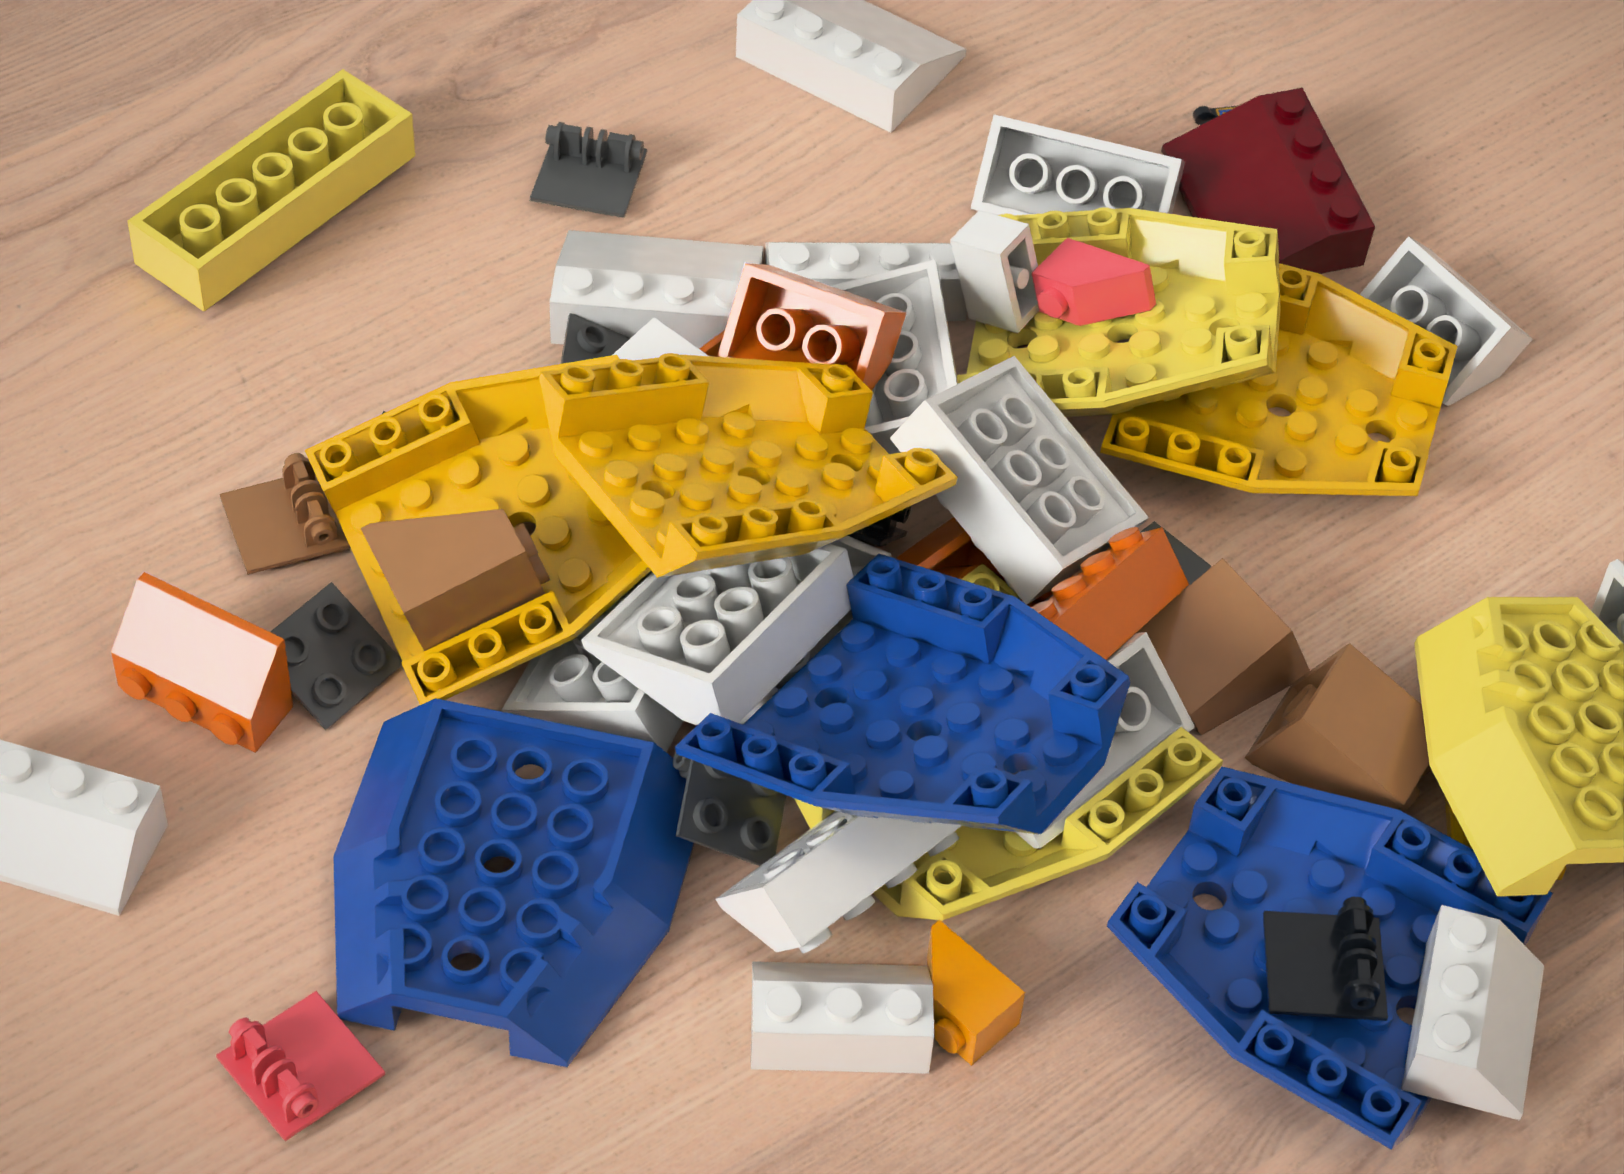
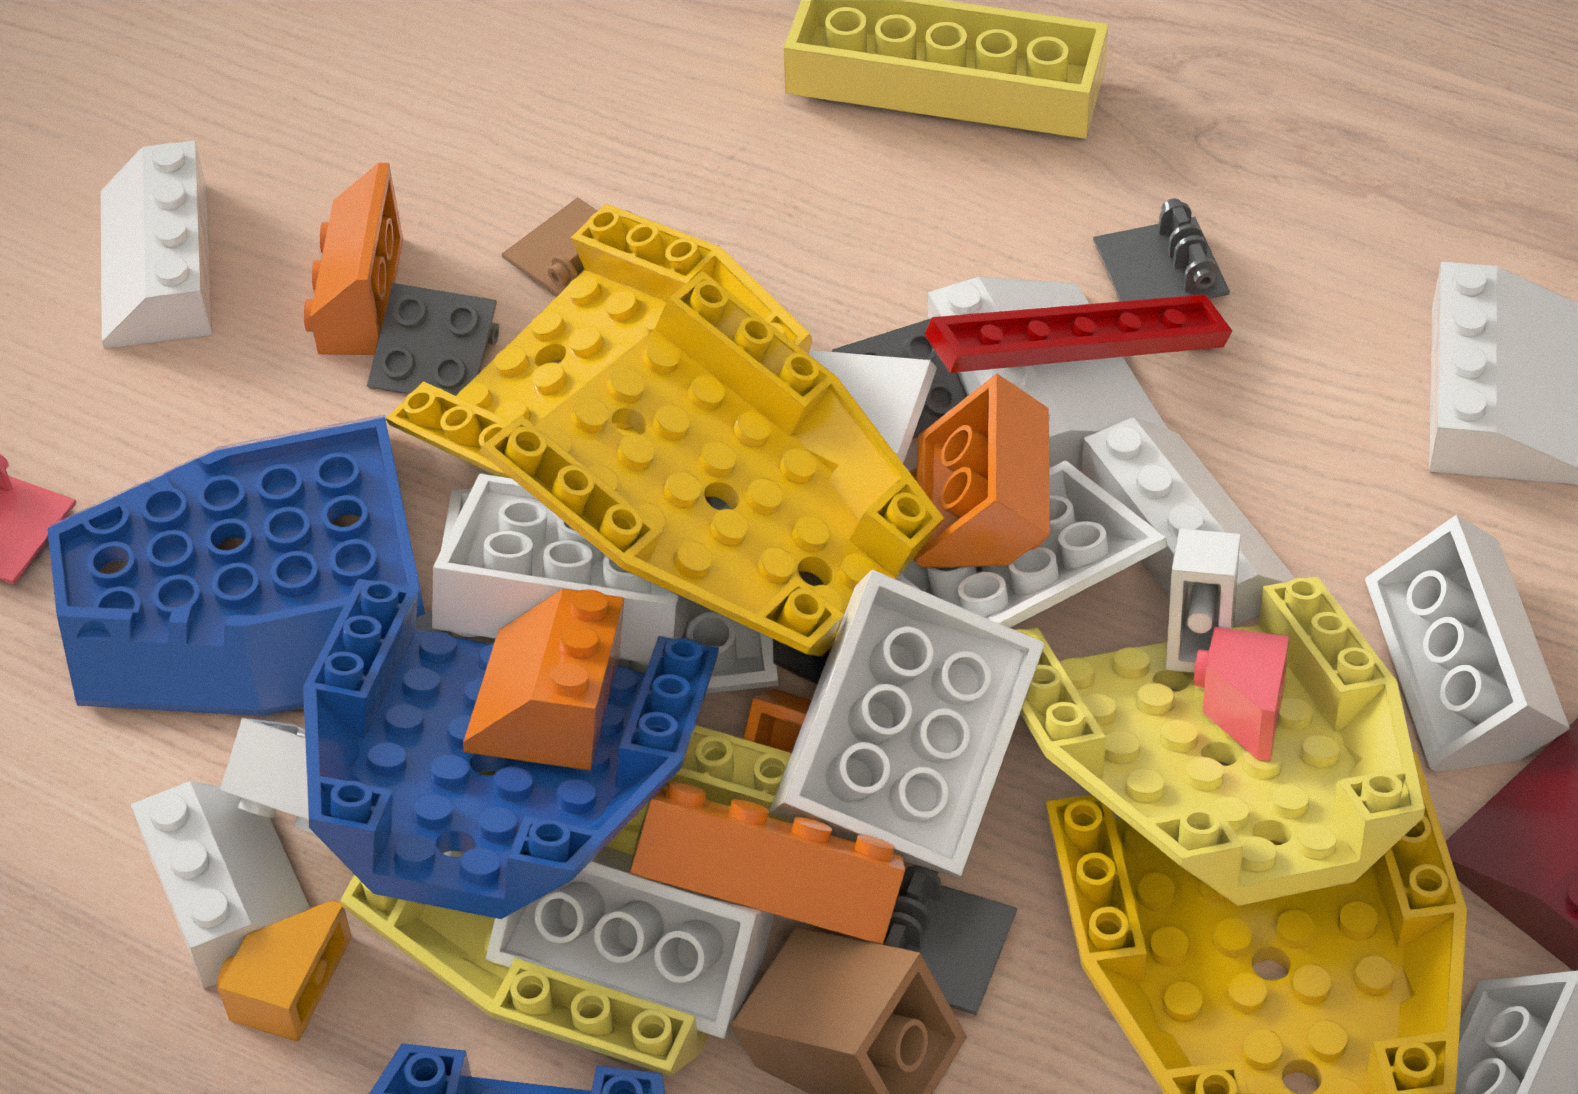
camera: 70 degrees right, 0 degrees up
(456, 570) = (493, 348): medium nougat slope -> none
(666, 235) = (1076, 333): none -> red plate
(871, 654) = (549, 681): none -> orange slope

